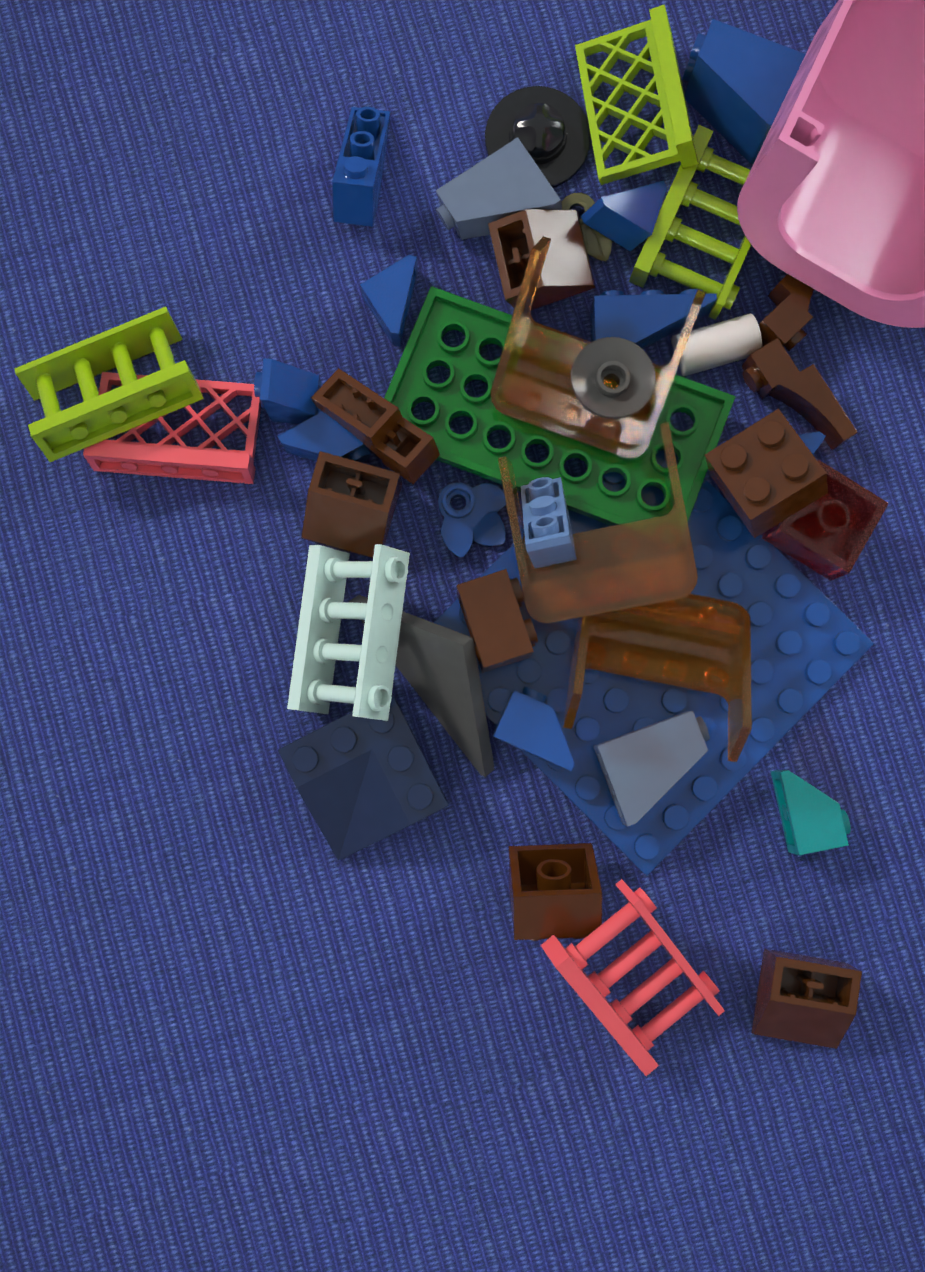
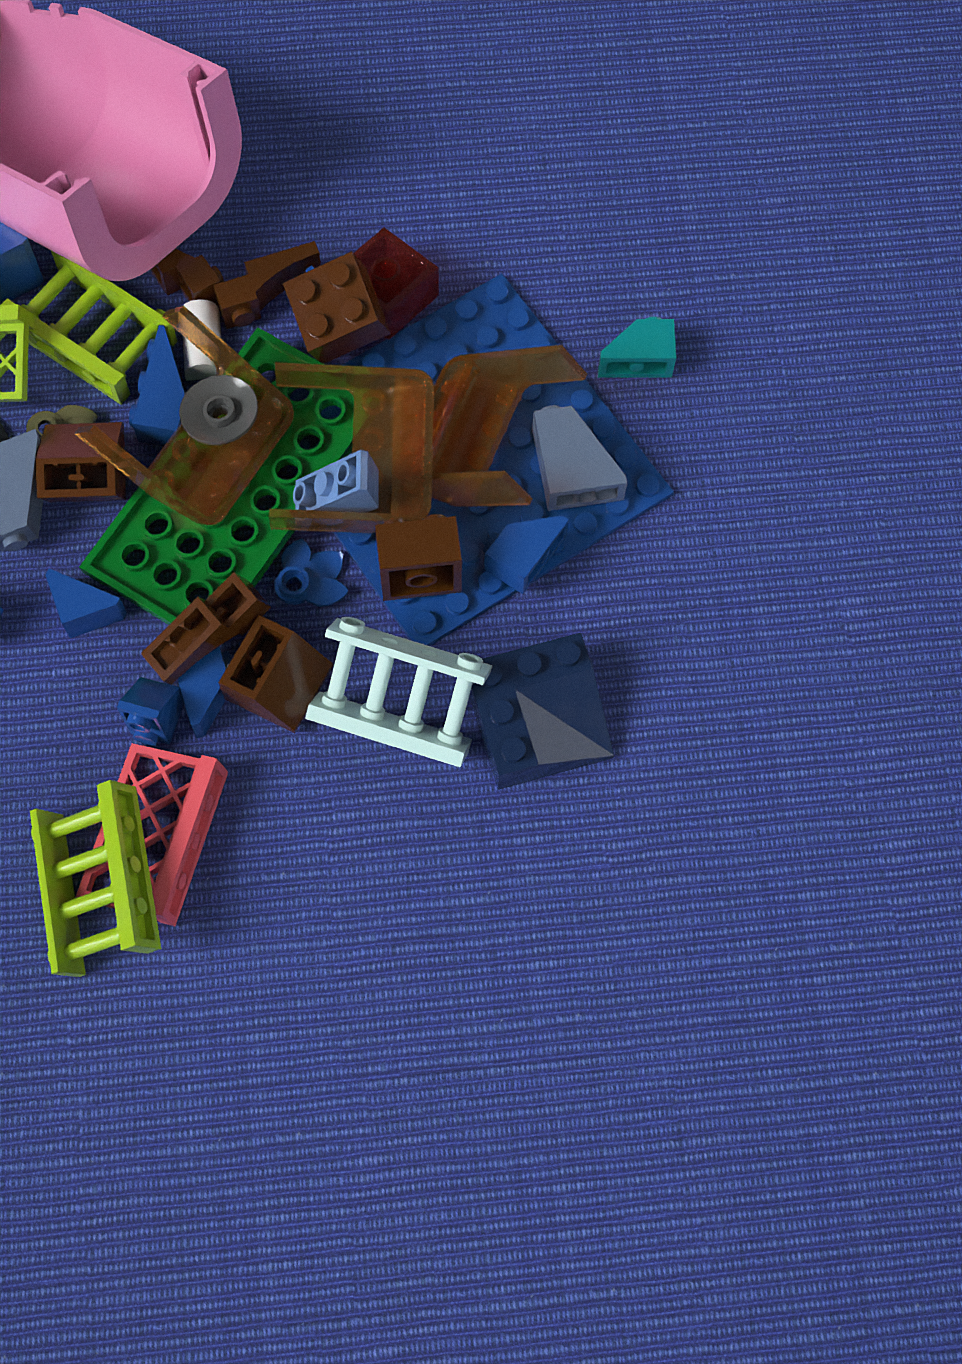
camera: 80 degrees left, 15 degrees down
(447, 678) = (462, 617): dark grey tile -> none
(554, 891) = (674, 557): reddish brown brick -> none
(595, 987) = (765, 536): coral fence -> none
(627, 215) = (66, 382): blue slope -> none
(805, 998) = (801, 381): reddish brown slope -> none

